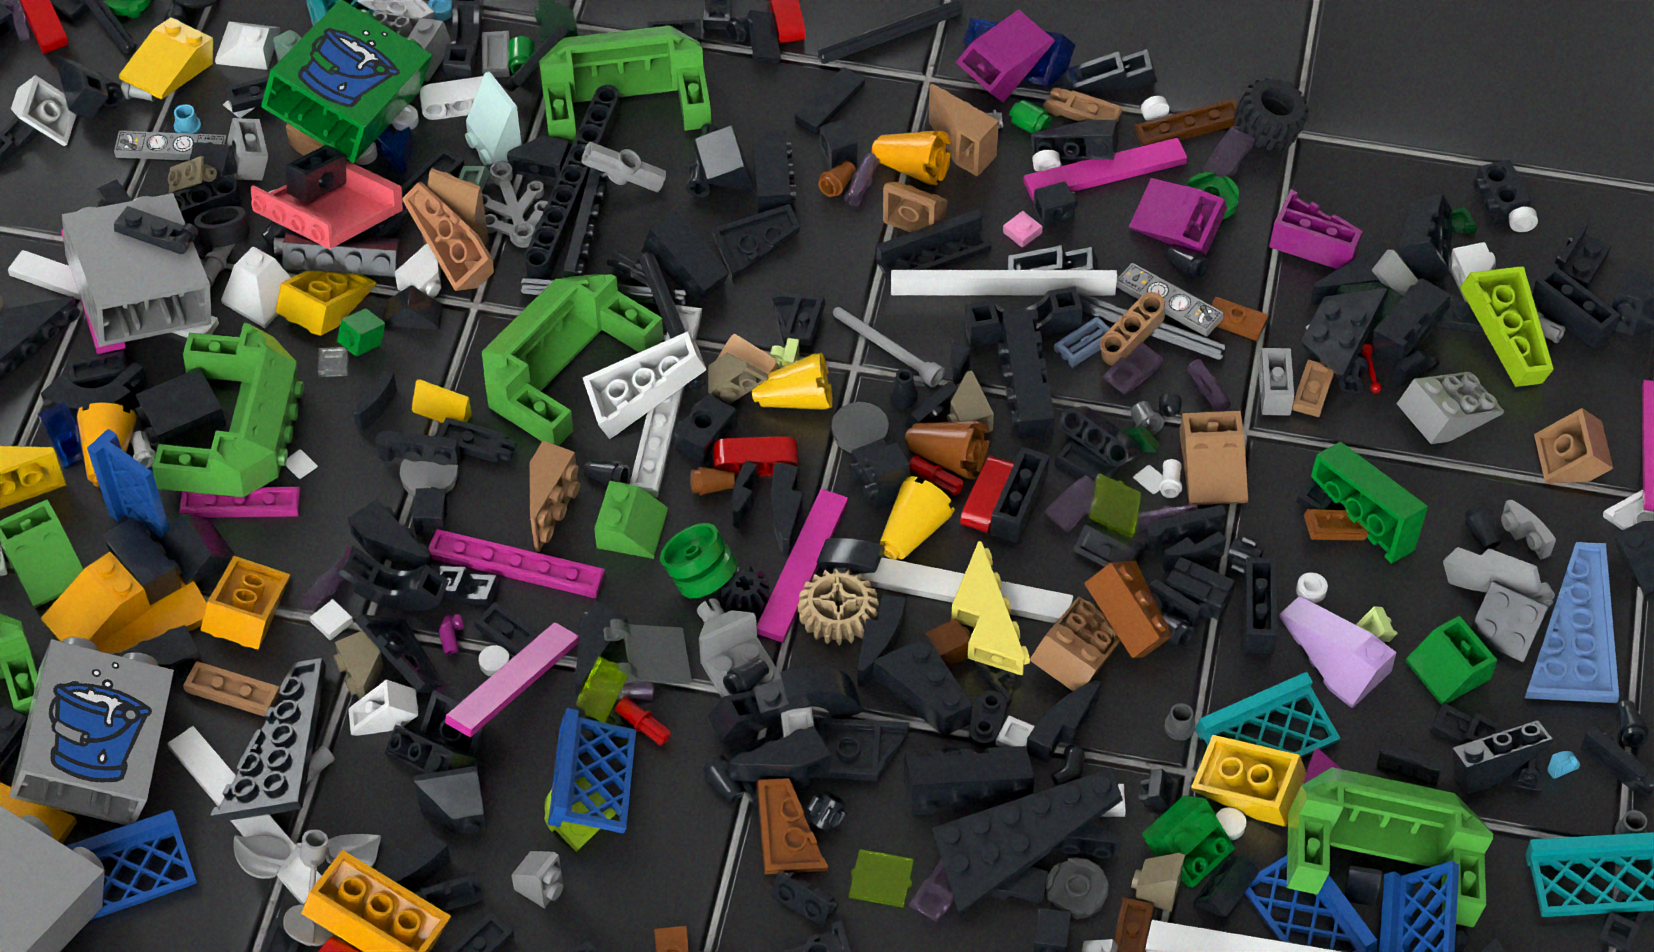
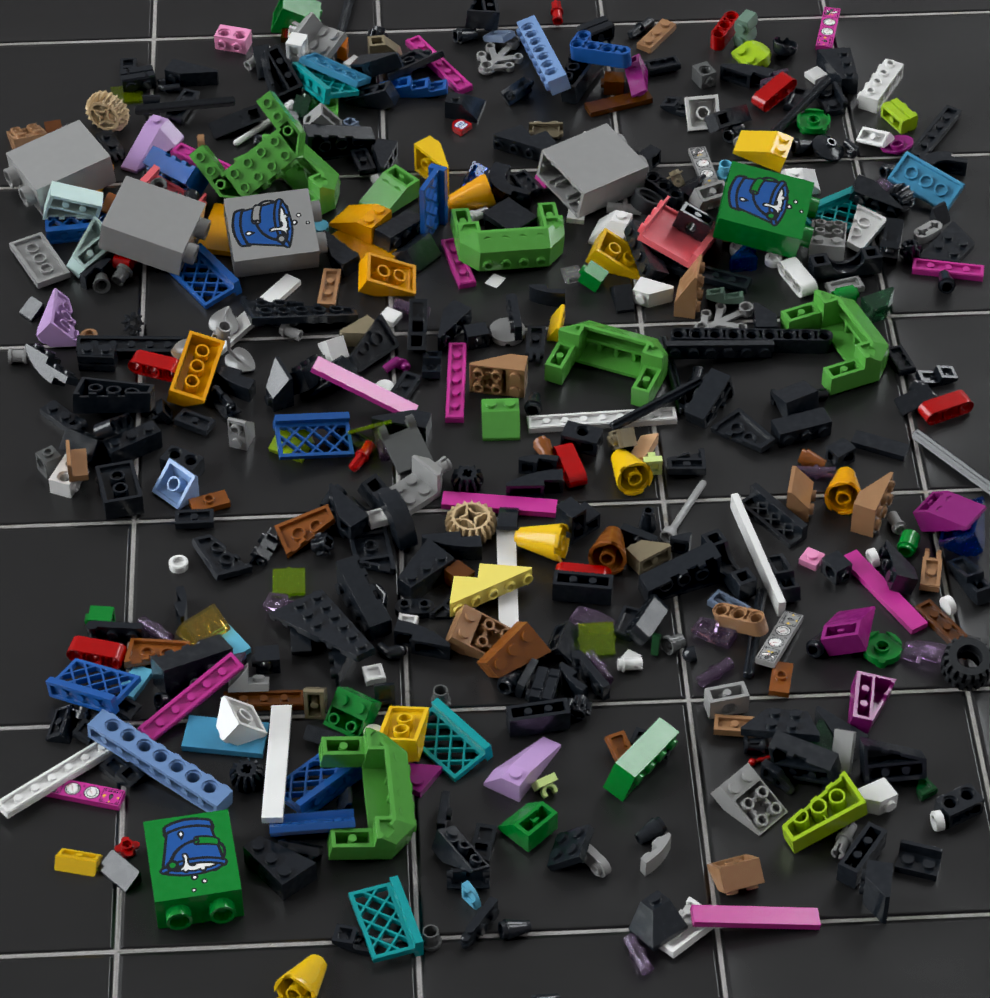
camera: 75 degrees right, 10 degrees down
(155, 230) = (612, 161): black plate -> none
(450, 239) = (665, 296): nougat wedge -> none
(492, 122) = (774, 290): light aqua slope -> none
(533, 60) = (859, 298): black tile -> none
(623, 167) = (763, 343): light grey piece -> none
(642, 381) = (597, 396): white wedge -> none
(698, 560) = (474, 448): green wheel -> none
(745, 676) = (401, 485): black cone -> none
(859, 425) = (614, 510): dark grey tile -> none
(935, 475) = (583, 556): red axle -> none
(1077, 887) = (306, 670): dark grey tile -> none
(1214, 457) = (651, 679): medium nougat slope -> none
(1312, 587) = (569, 750): white tile -> none
(1478, 571) = (605, 829): light grey slope -> none
(1579, 643) = (575, 893): medium blue wing -> none

